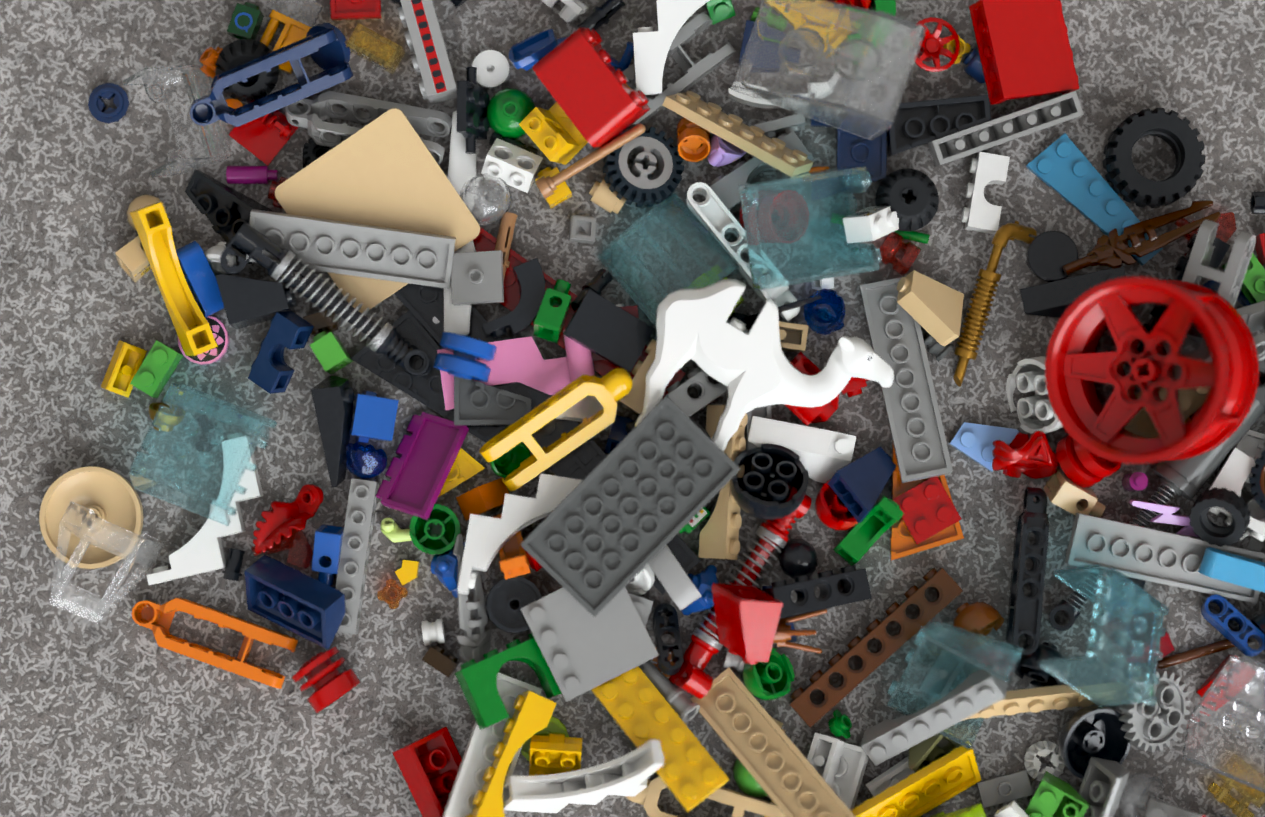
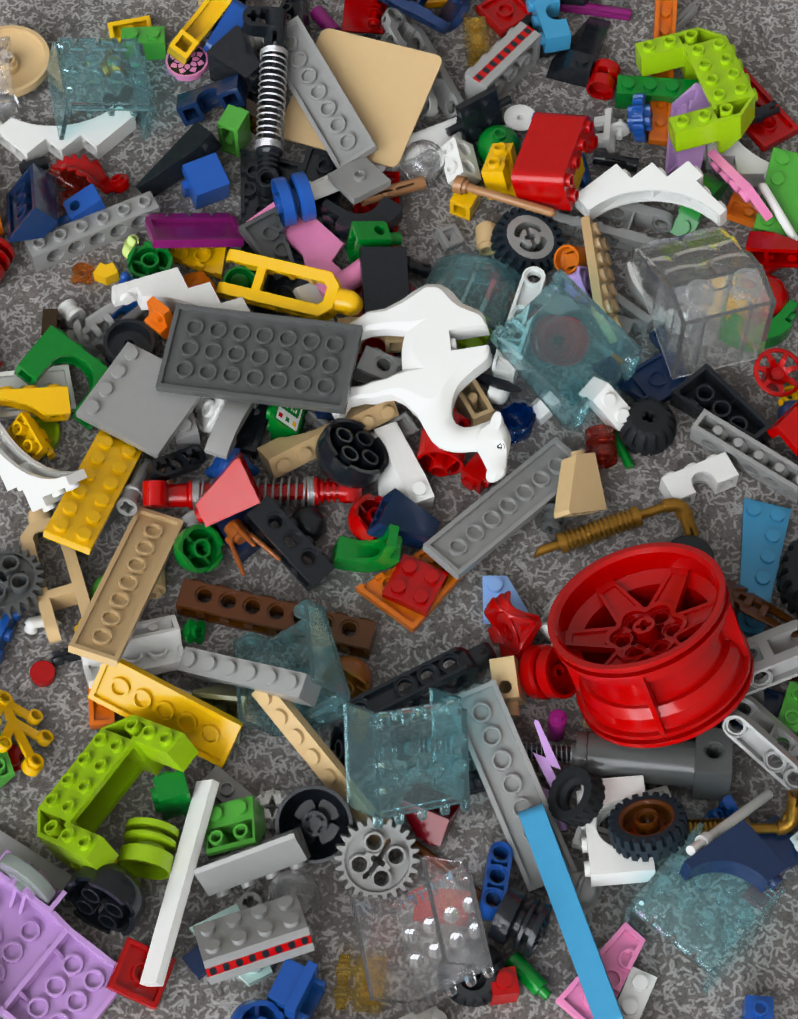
camera: 55 degrees right, 25 degrees down
(365, 461) = (169, 196): clear blue hair -> none

